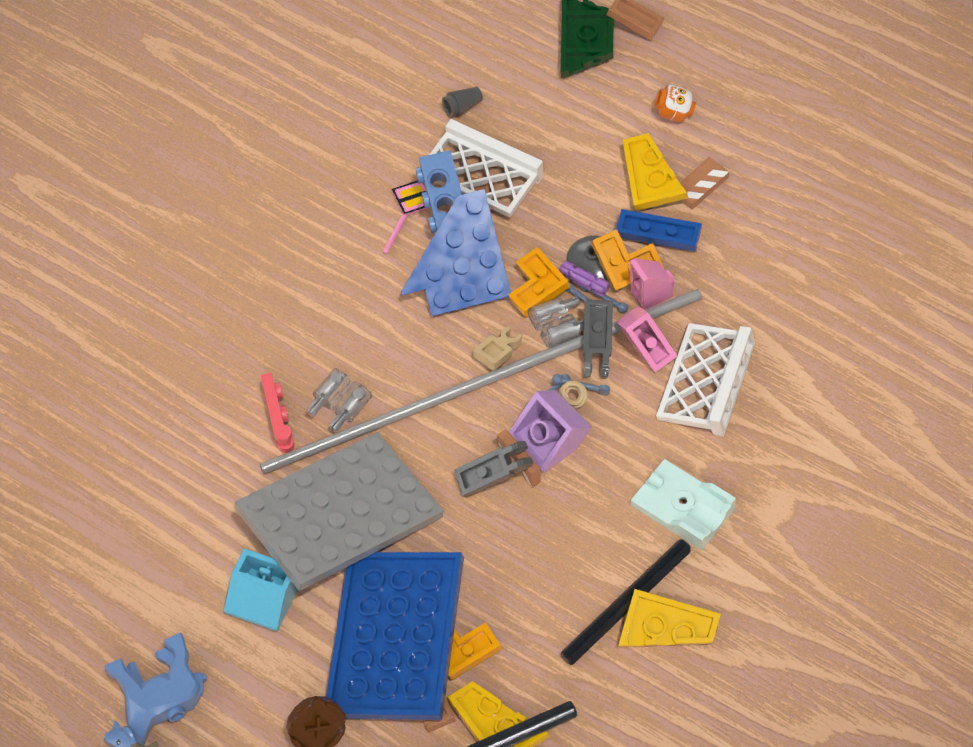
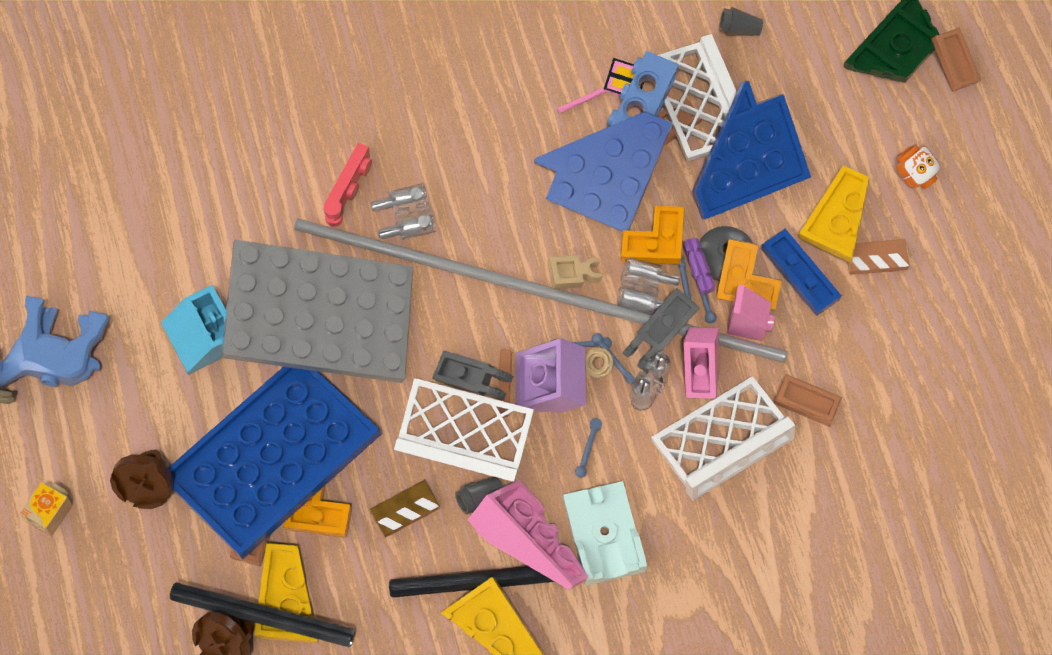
camera: 30 degrees right, 10 degrees up
(525, 598) = (404, 508): none -> pearl gold tile
(533, 531) = (458, 456): none -> white fence
(553, 176) = (751, 155): none -> blue wing
(569, 548) = (473, 494): none -> dark grey cone
(608, 439) = (595, 425): none -> sand blue hinge
(614, 545) = (515, 524): none -> bright pink wedge
(622, 377) = (650, 381): none -> clear piece
(741, 310) = (807, 400): none -> nougat tile

